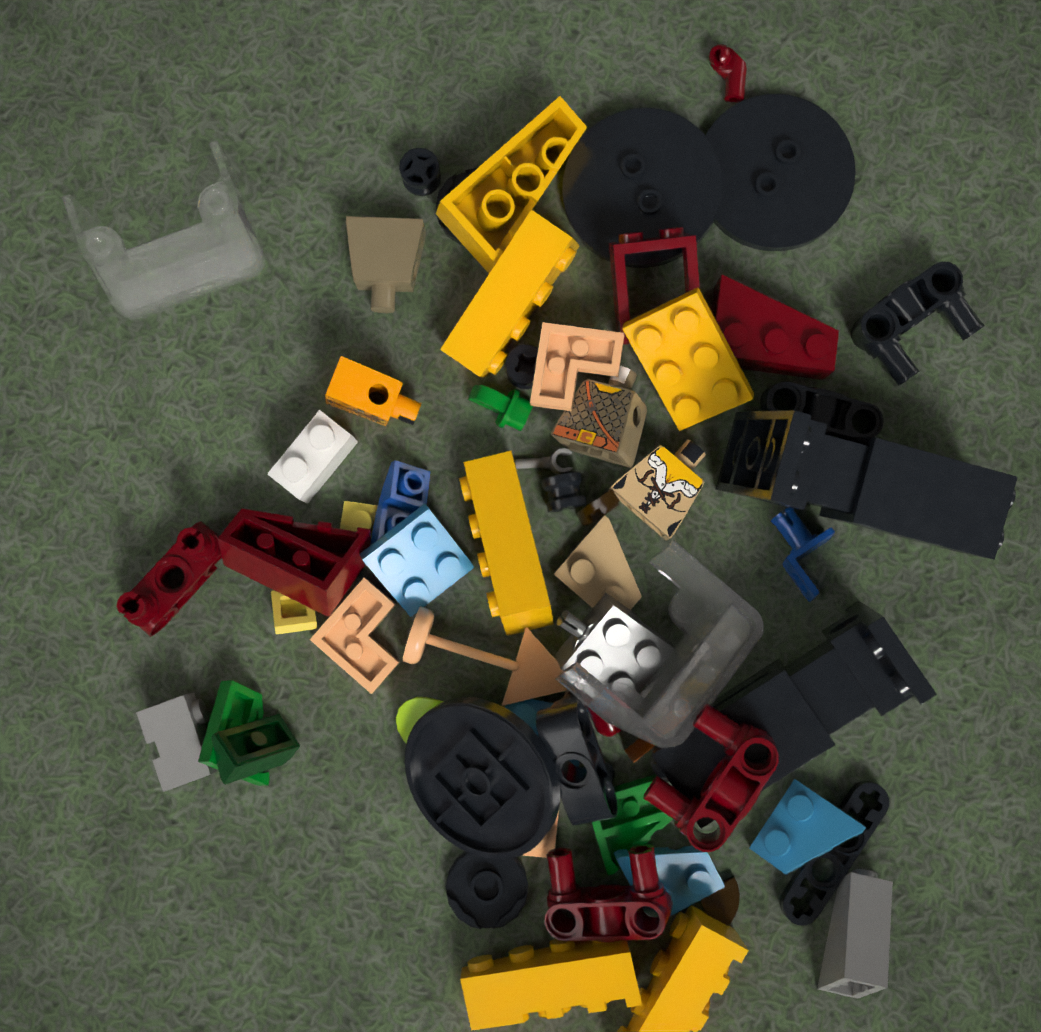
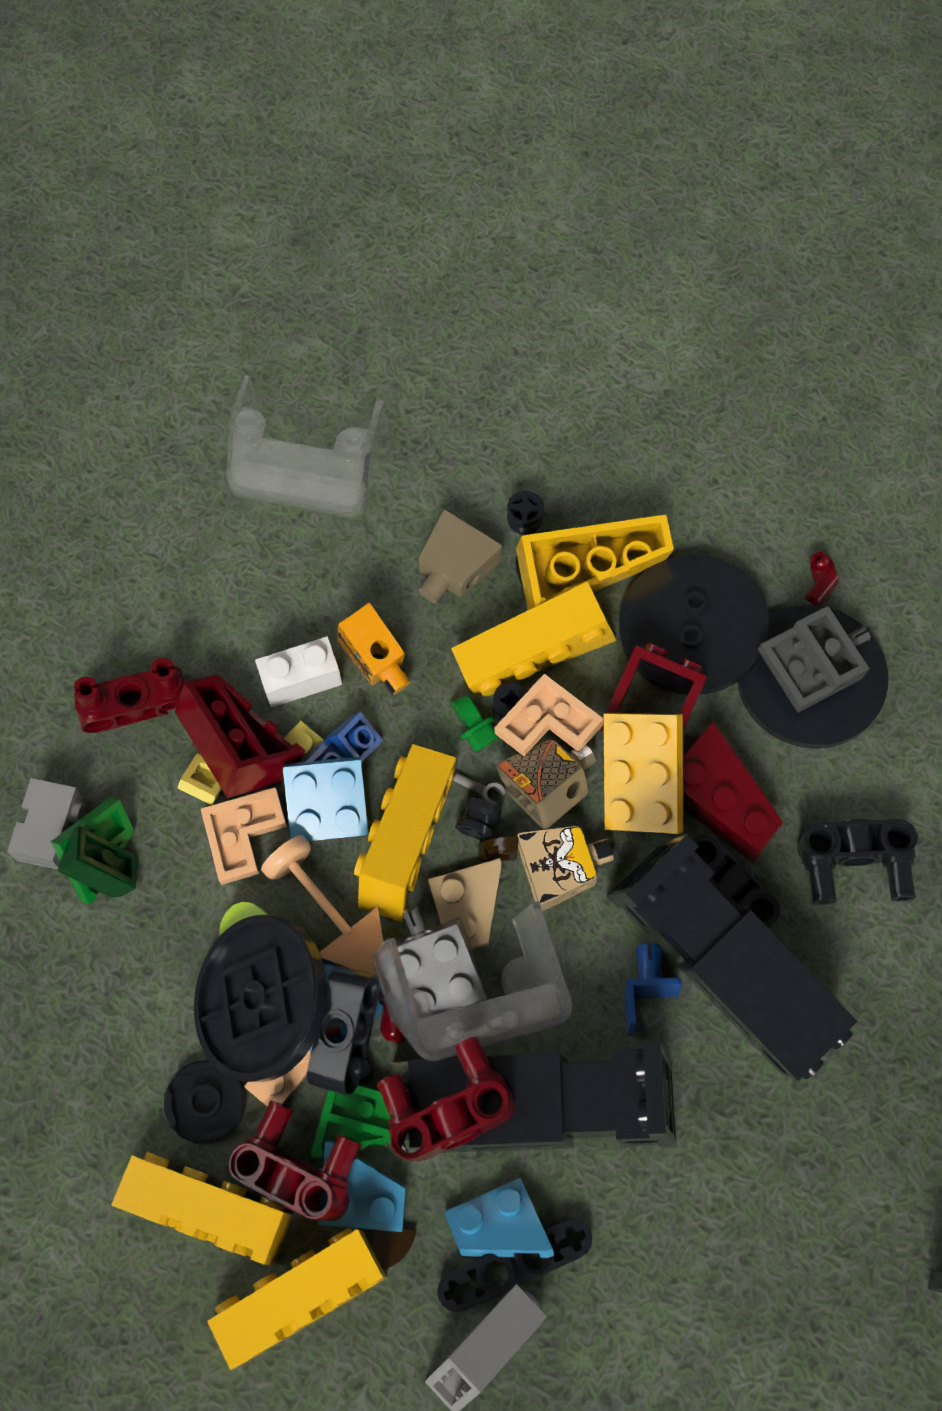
camera: 30 degrees right, 15 degrees down
(777, 155) = (815, 658): none -> dark grey plate

